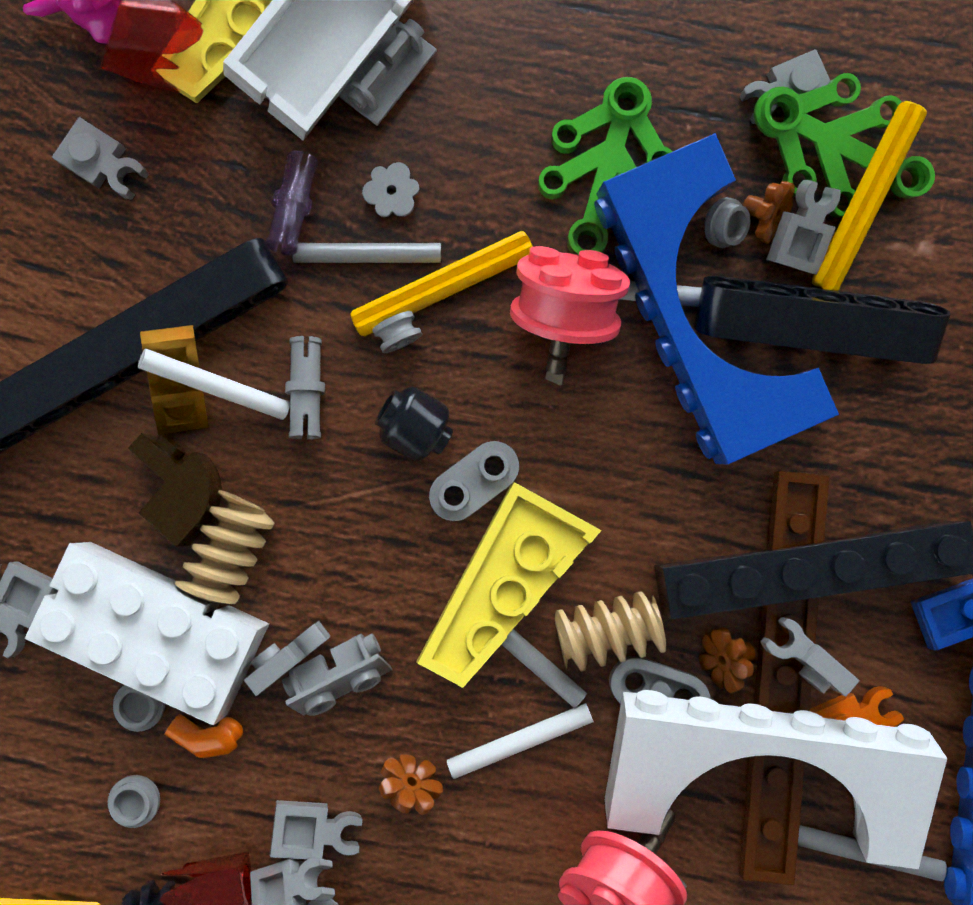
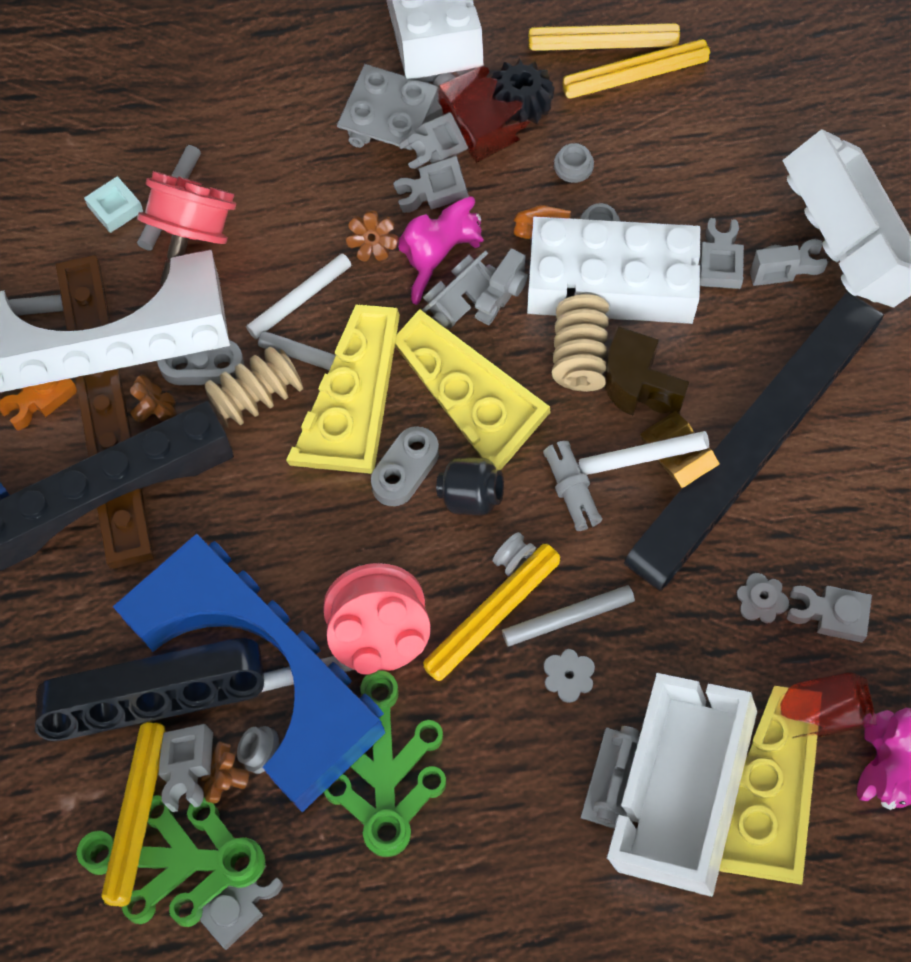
camera: 160 degrees right, 20 degrees down
(171, 210) = (754, 606): none -> light grey plant
(291, 203) = (649, 627): clear purple pin -> none
(343, 750) = (429, 240): none -> dark pink animal
(366, 534) = (477, 395): none -> light yellow wing
(819, 666) = (78, 409): light grey plate -> none

